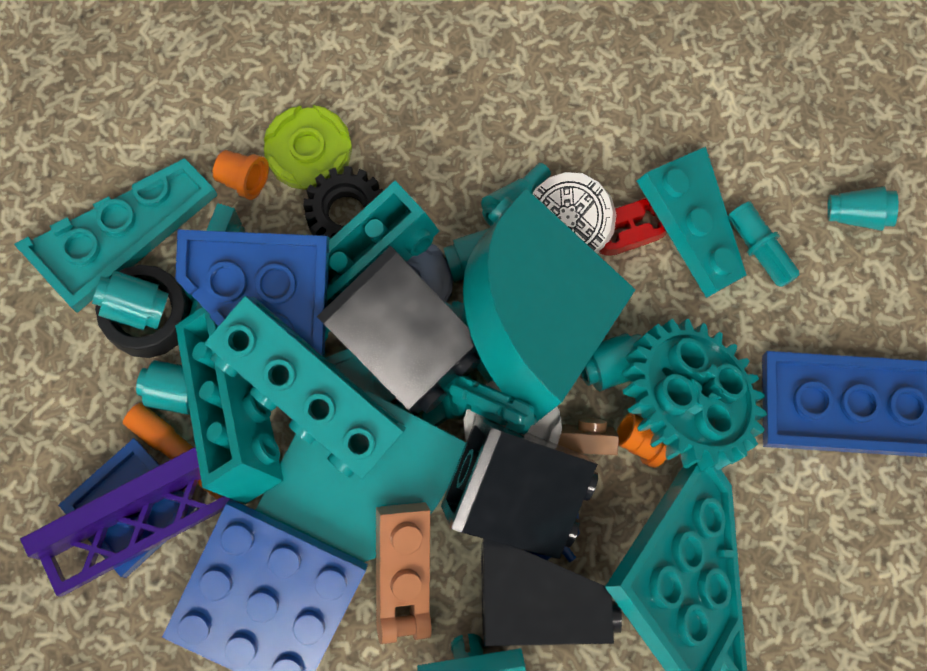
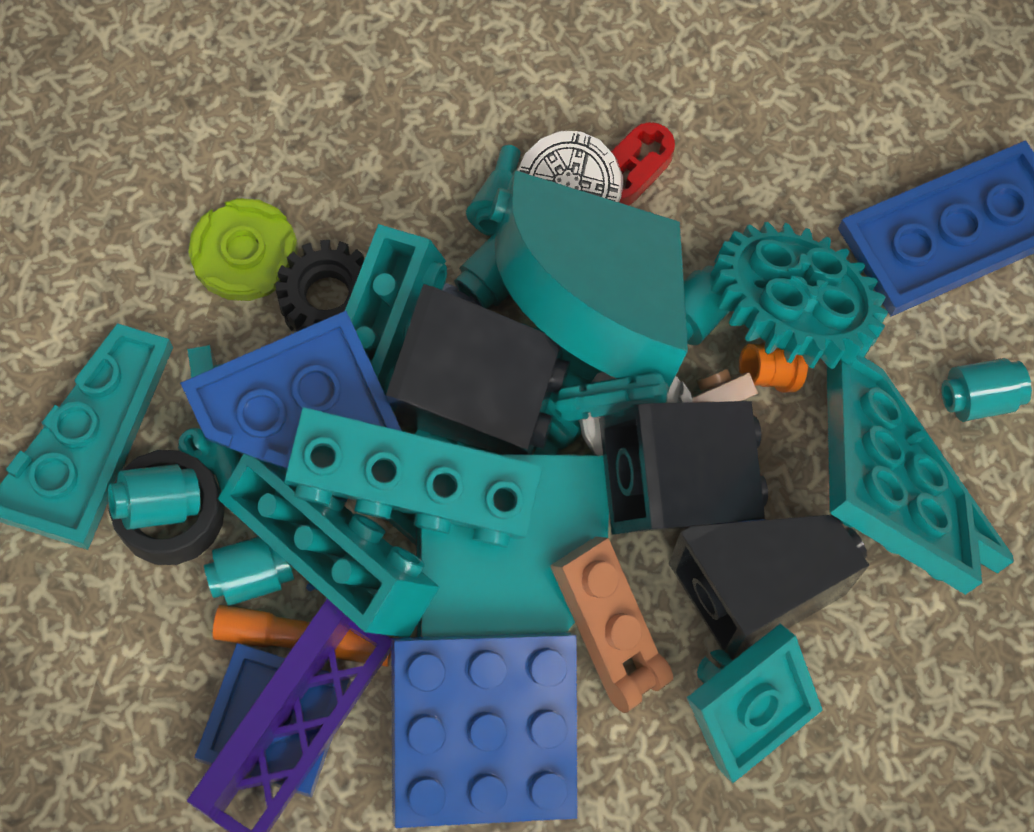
camera: 30 degrees left, 5 degrees down
(241, 173) = (188, 309): orange piece -> none
(696, 219) = (694, 123): teal wing -> none
(763, 244) = (775, 117): teal axle -> none
(804, 545) = (986, 389): none -> teal brick
(865, 208) = (855, 34): teal cone -> none

